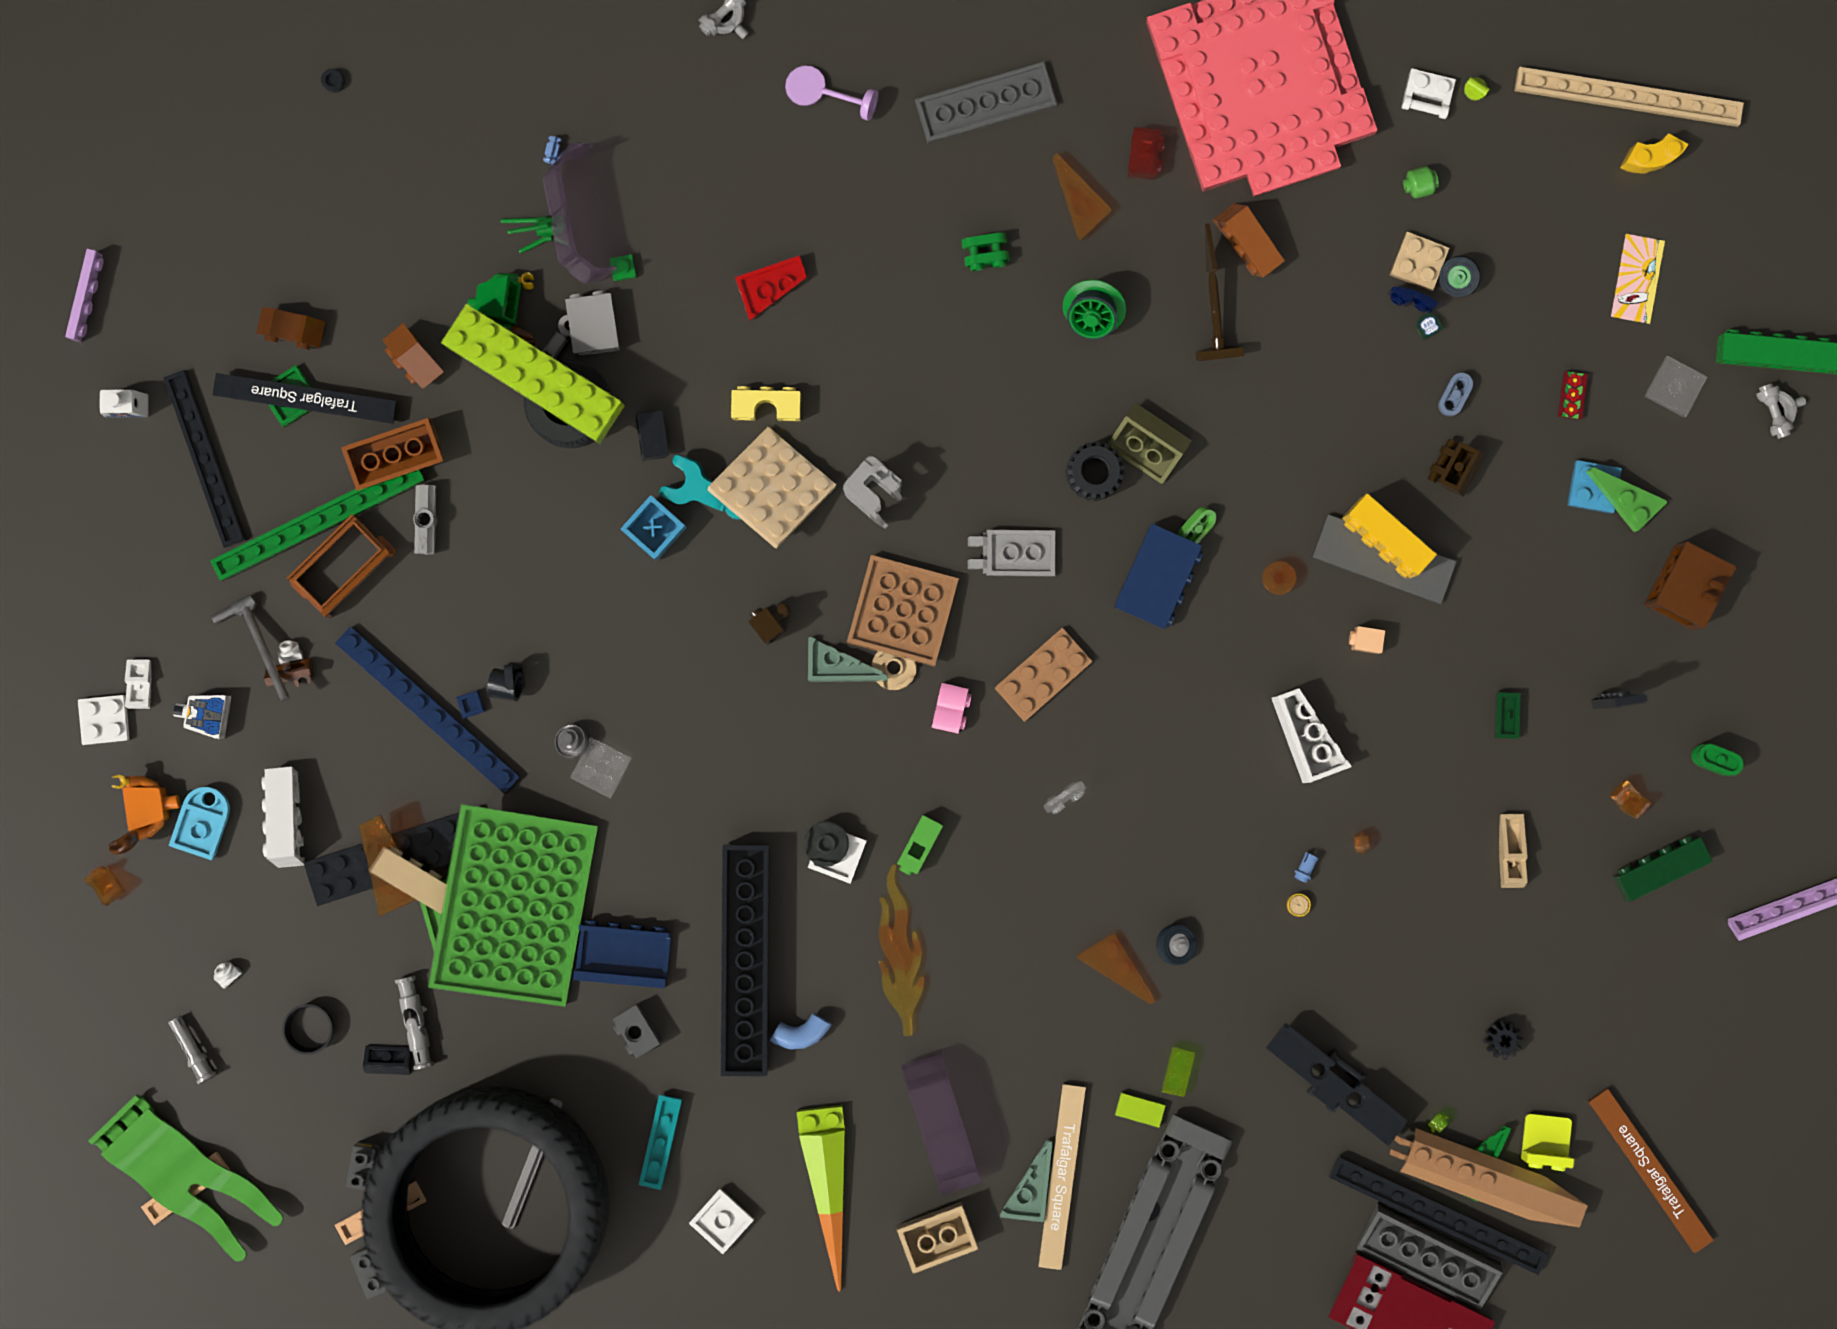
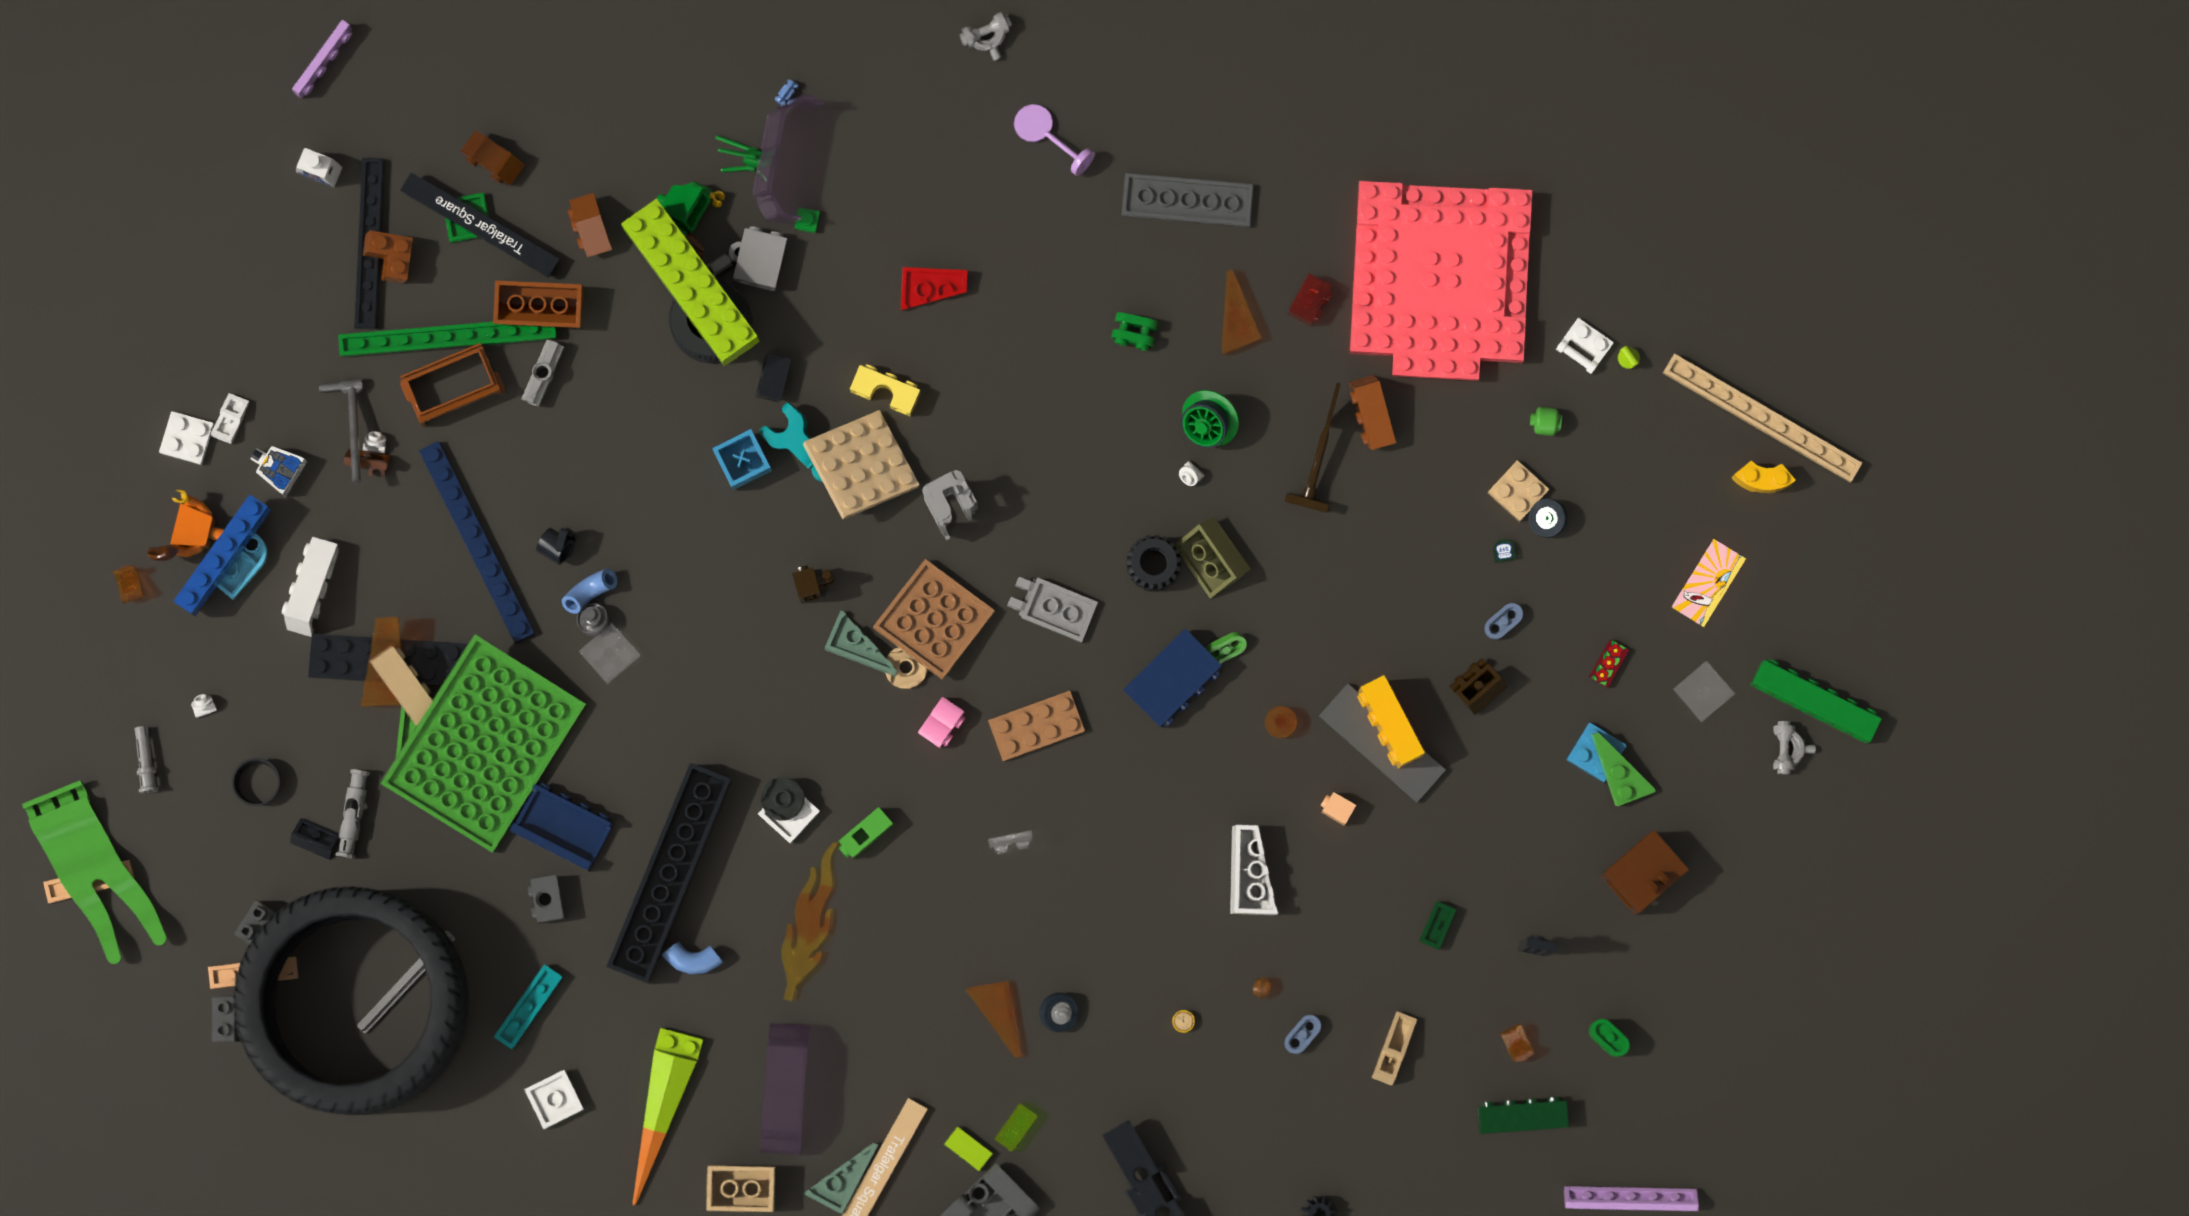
camera: 15 degrees right, 5 degrees down
(183, 822) = (222, 555): none -> blue brick
(232, 457) = (394, 251): none -> dark orange brick
(470, 704) = (516, 552): dark blue tile -> none
(555, 714) = (589, 589): none -> medium blue cylinder
(1095, 370) = (1190, 474): none -> white plate
(1306, 867) = (1203, 990): medium blue pin -> none
(1403, 296) = (1492, 516): clear blue slope -> none
(1418, 872) = (1302, 1034): none -> sand blue plate

